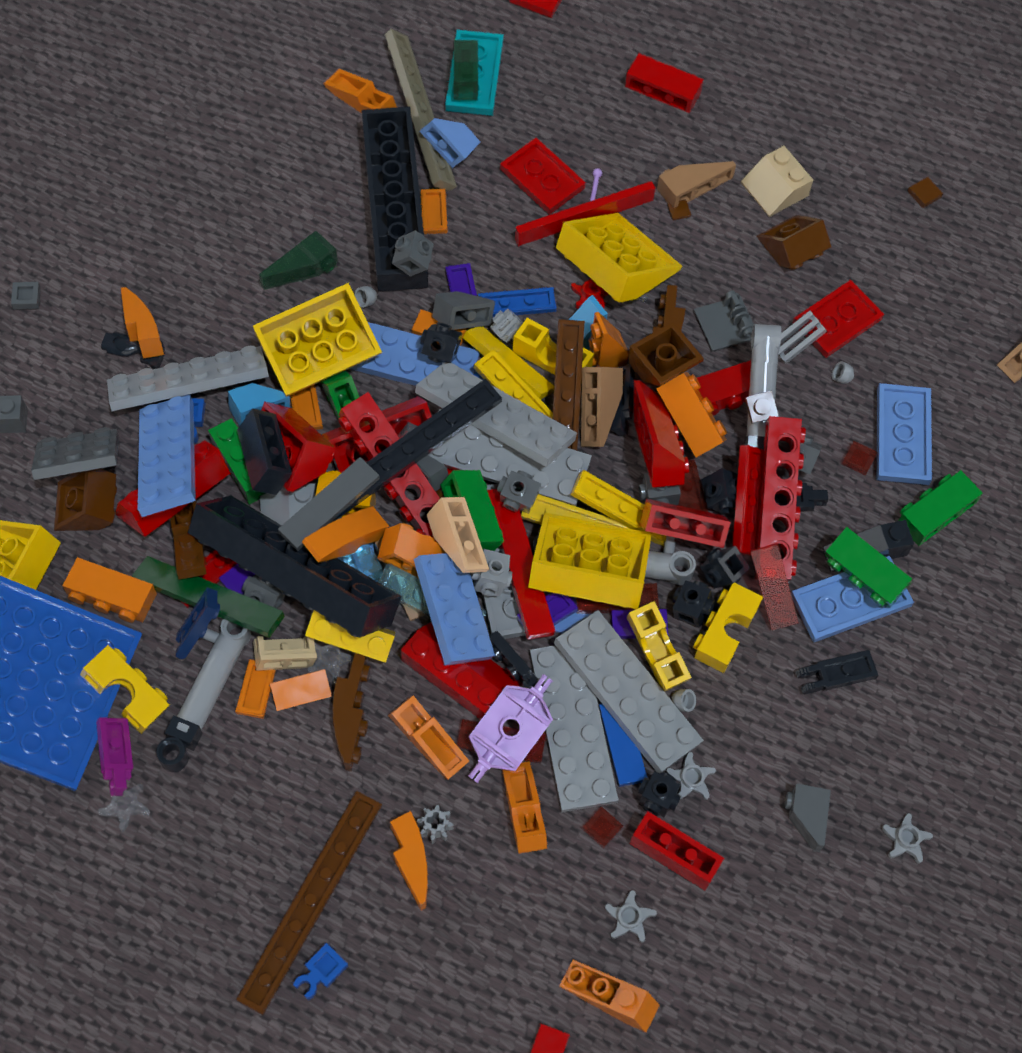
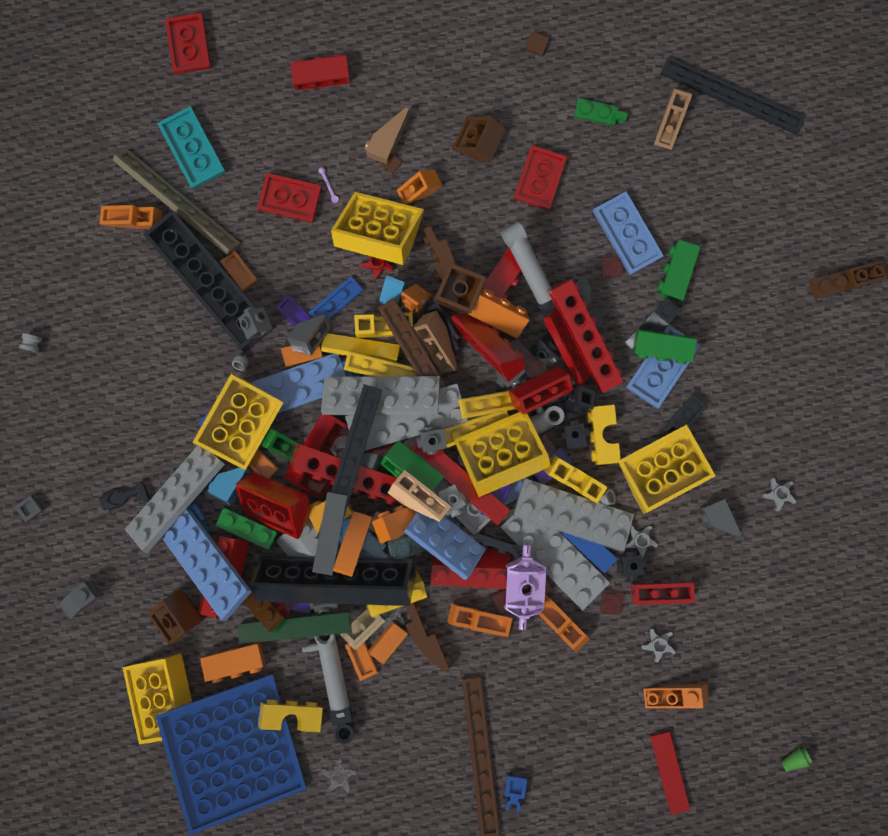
camera: 30 degrees left, 20 degrees up
(75, 453) = (148, 596): dark grey plate -> none
(115, 753) = (312, 755): magenta hinge -> none
(141, 324) = (118, 482): orange slope -> none
(162, 144) = (30, 342): none -> light grey wheel
(197, 622) = (302, 650): dark blue hinge -> none
(264, 451) = (263, 522): black brick -> none
(302, 262) = (185, 364): clear green slope -> none
(411, 857) = (520, 696): orange slope -> none
(440, 342) = (313, 369): black brick -> none
(444, 824) = (516, 673): light grey gear -> none
(450, 139) = (217, 215): medium blue slope -> none
(465, 69) = (185, 152): clear green slope -> none
(506, 324) = (343, 324): light grey gear -> none
(606, 205) = (335, 208): red tile -> none
(695, 246) = (419, 186): none -> orange slope
(725, 322) = (473, 227): dark grey hinge -> none
(761, 406) = (540, 284): plate -> none
(774, 586) = (616, 393): clear red tile -> none
(777, 181) = (441, 101): tan slope -> none
(777, 710) = (665, 469): none -> yellow slope
(804, 344) = (530, 193): light grey tile -> none
(845, 370) = (566, 211): light grey hinge -> none
(952, 296) = (599, 112): none -> green hinge

